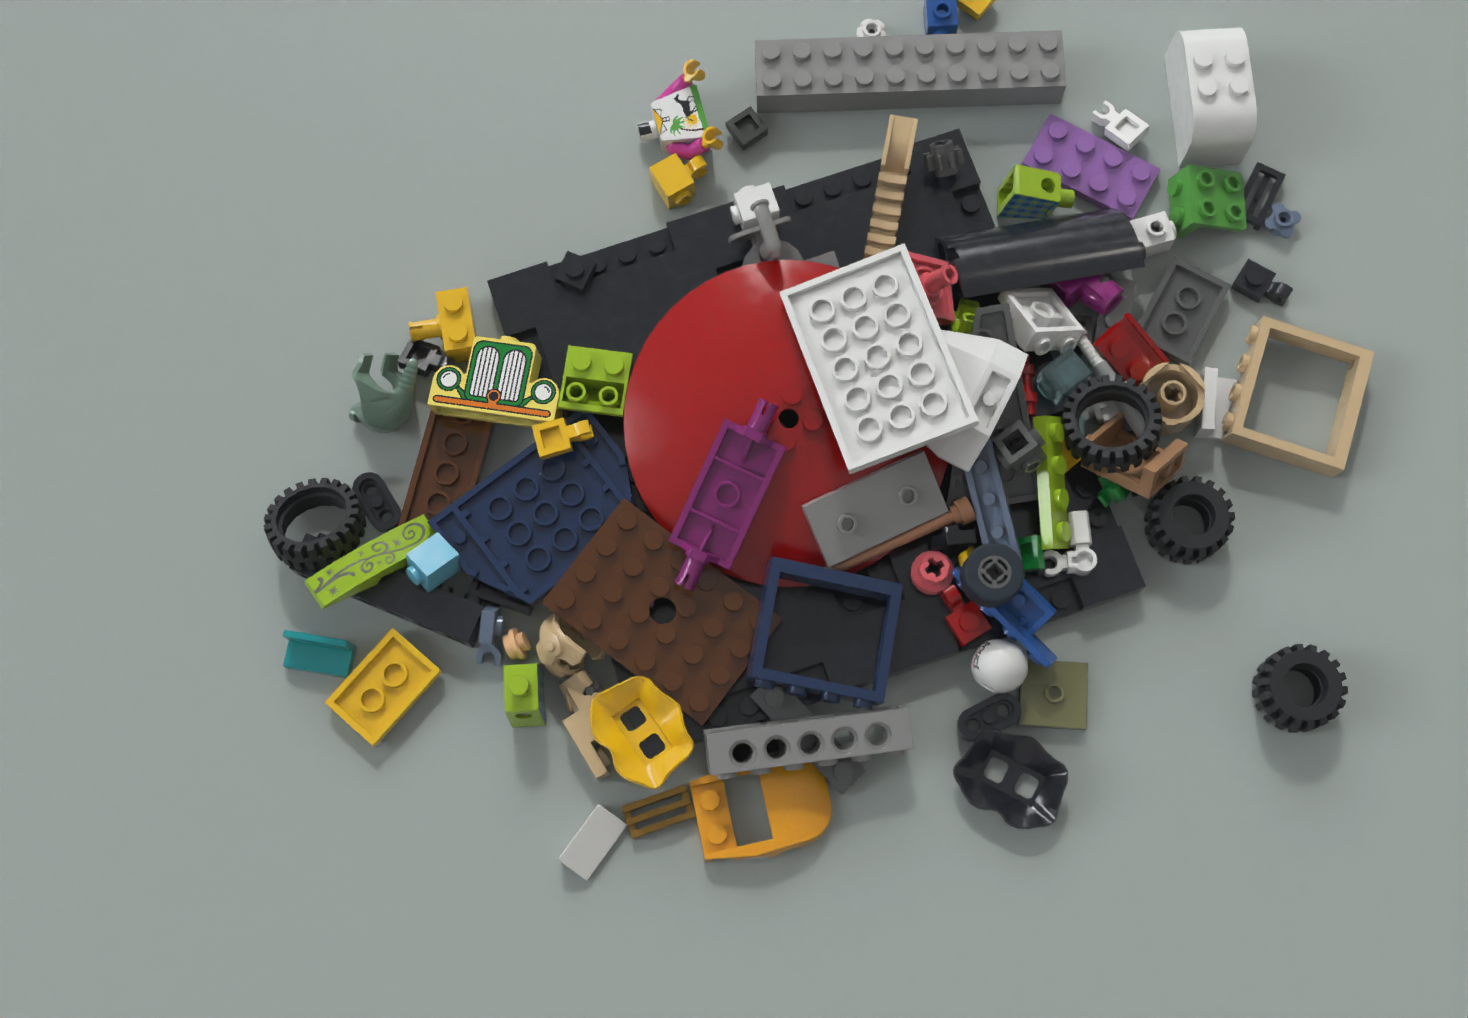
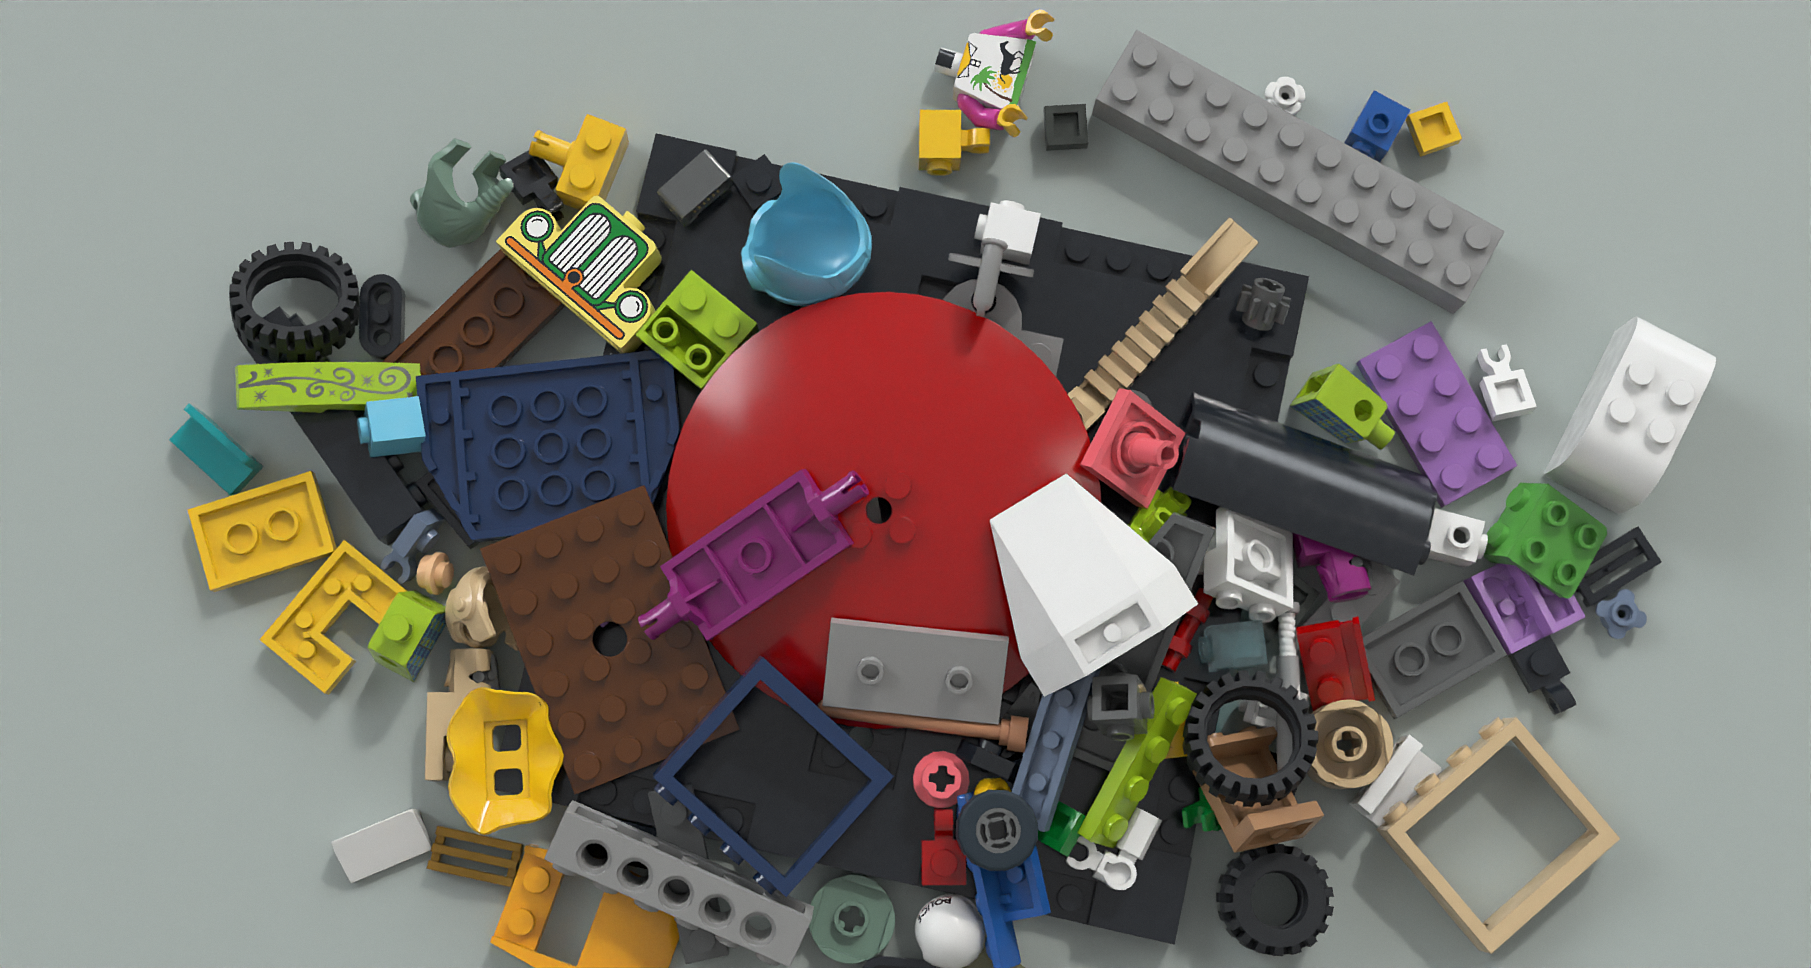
camera: 25 degrees right, 5 degrees up
(449, 732) = (301, 627): none -> yellow plate
(535, 297) = (695, 187): none -> dark grey piece
(556, 437) = (613, 367): yellow plate -> none
(632, 282) = (807, 241): none -> medium azure piece
(878, 359) = (1015, 507): white plate -> none
(939, 682) = (864, 940): none -> sand green plate
(1219, 251) = (1519, 606): none -> medium lavender slope

